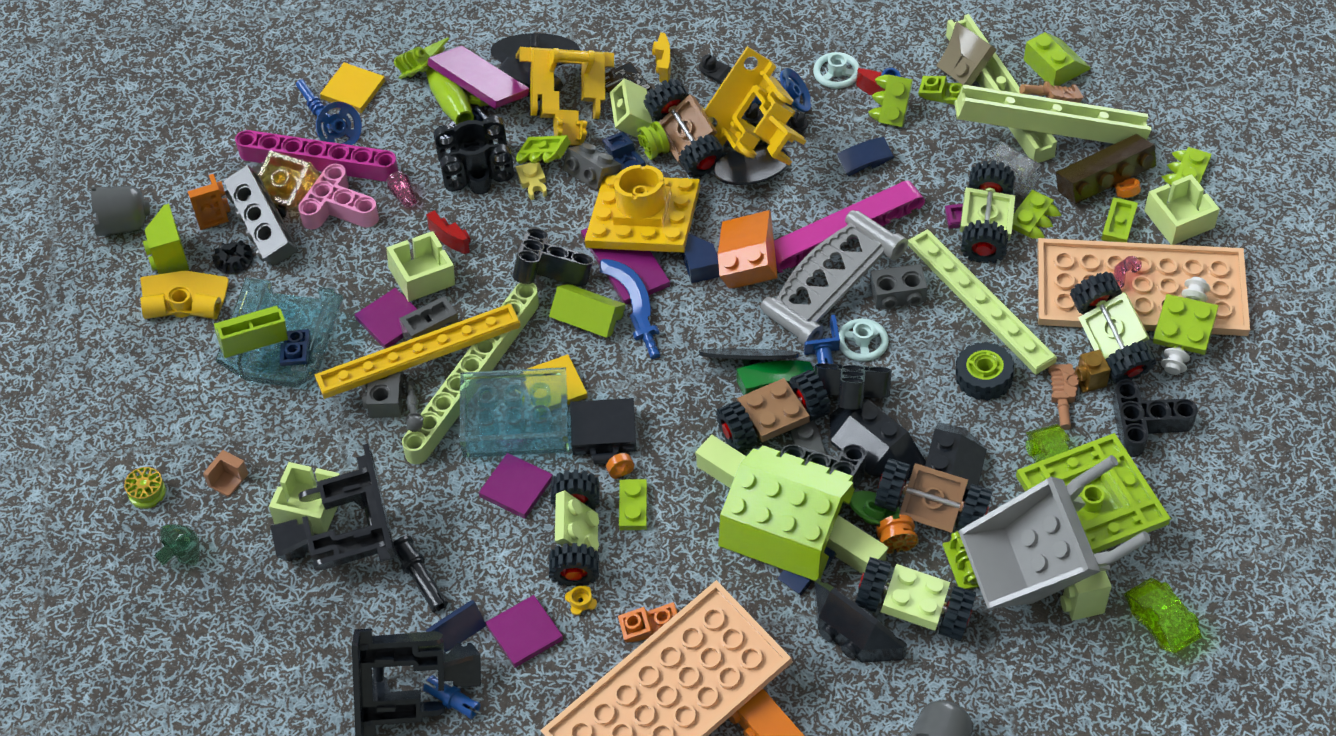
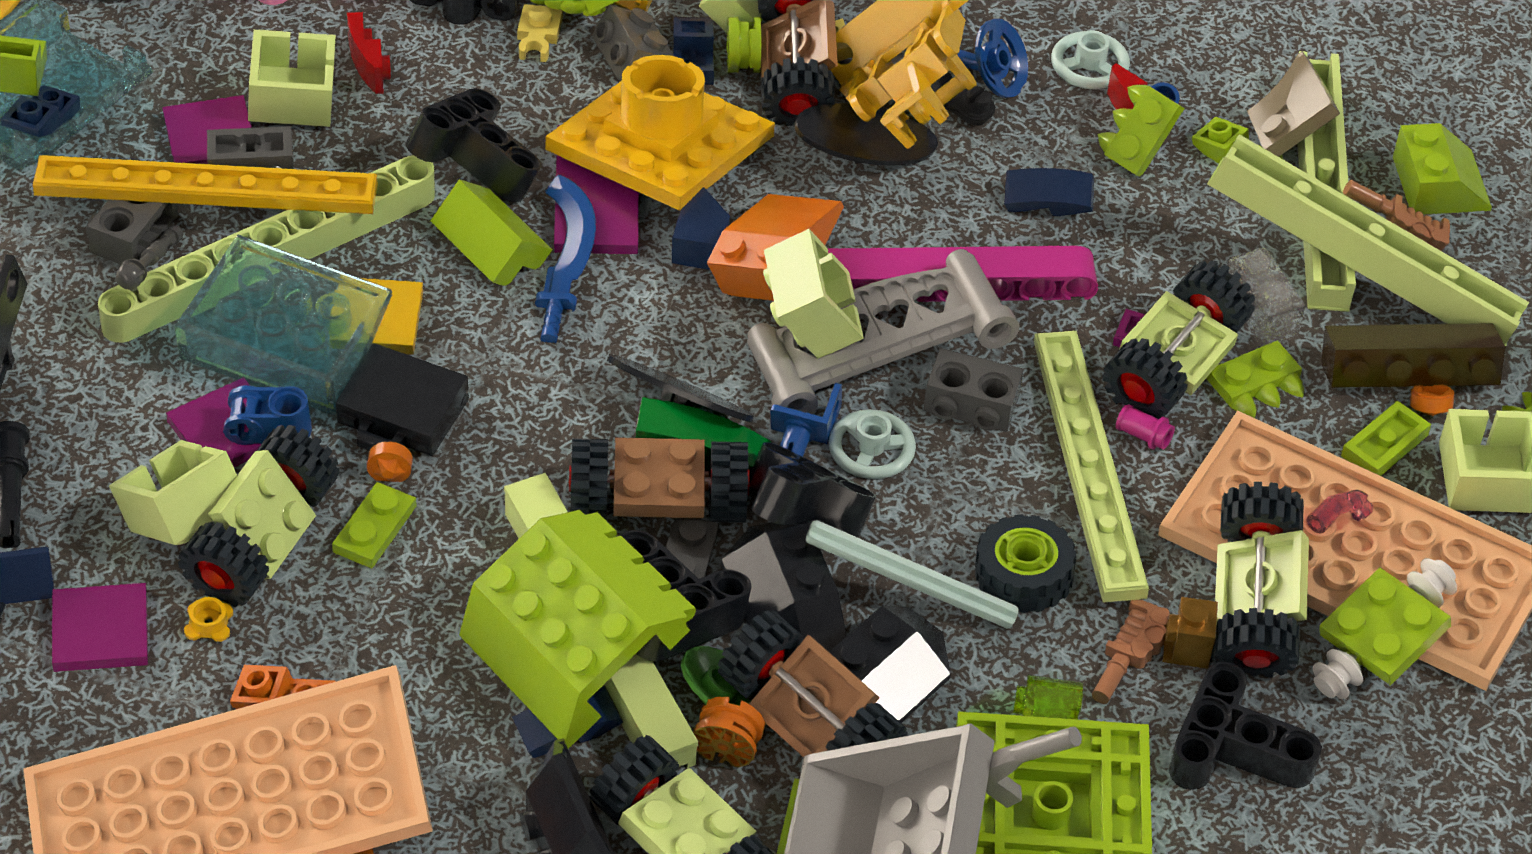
camera: 20 degrees right, 5 degrees down
(530, 531) = (190, 484): none -> yellowish green piece
(539, 468) = (264, 412): none -> blue piece
(794, 271) = (809, 294): none -> yellowish green piece
(936, 404) = (911, 574): none -> light aqua axle
(996, 267) = (1145, 427): none -> dark pink pin

